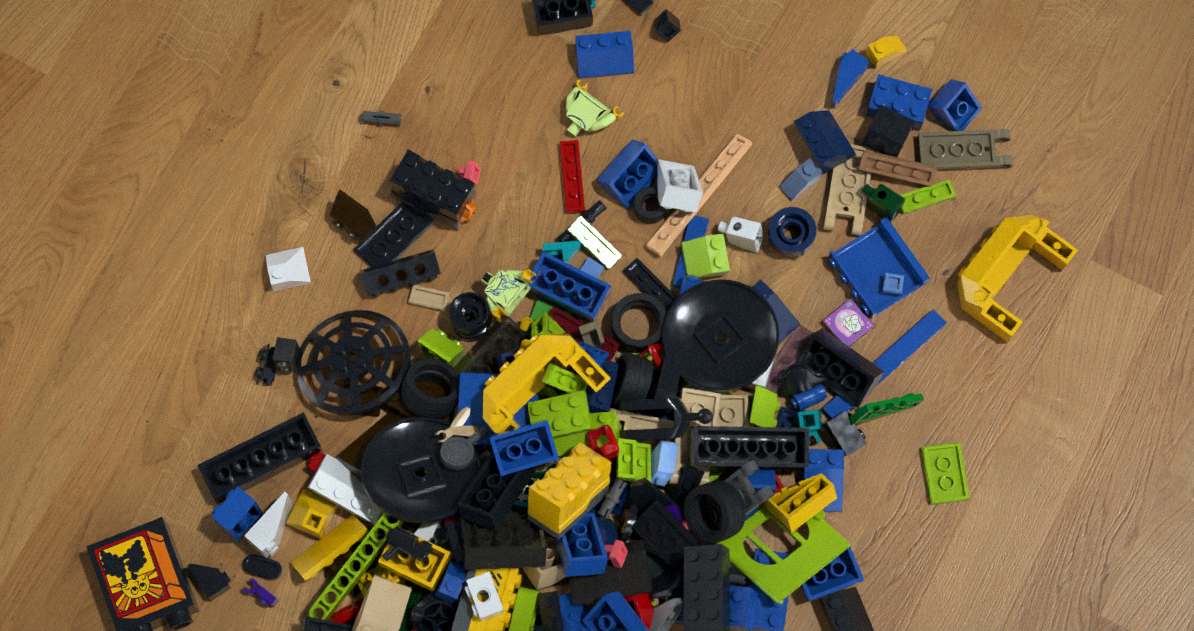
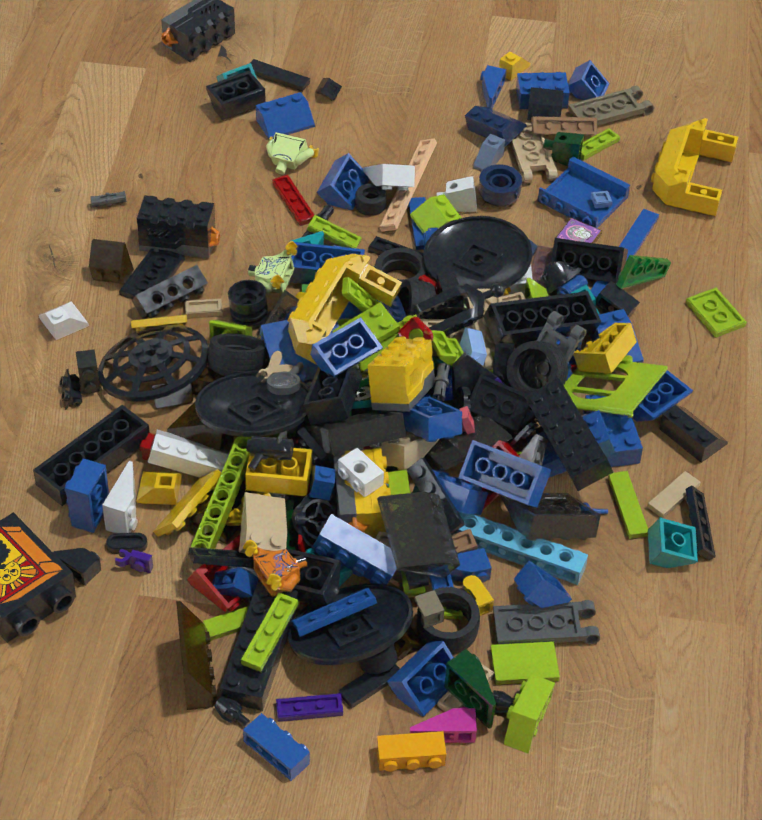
camera: 20 degrees left, 25 degrees down
(378, 305) = (143, 323): none -> yellow plate

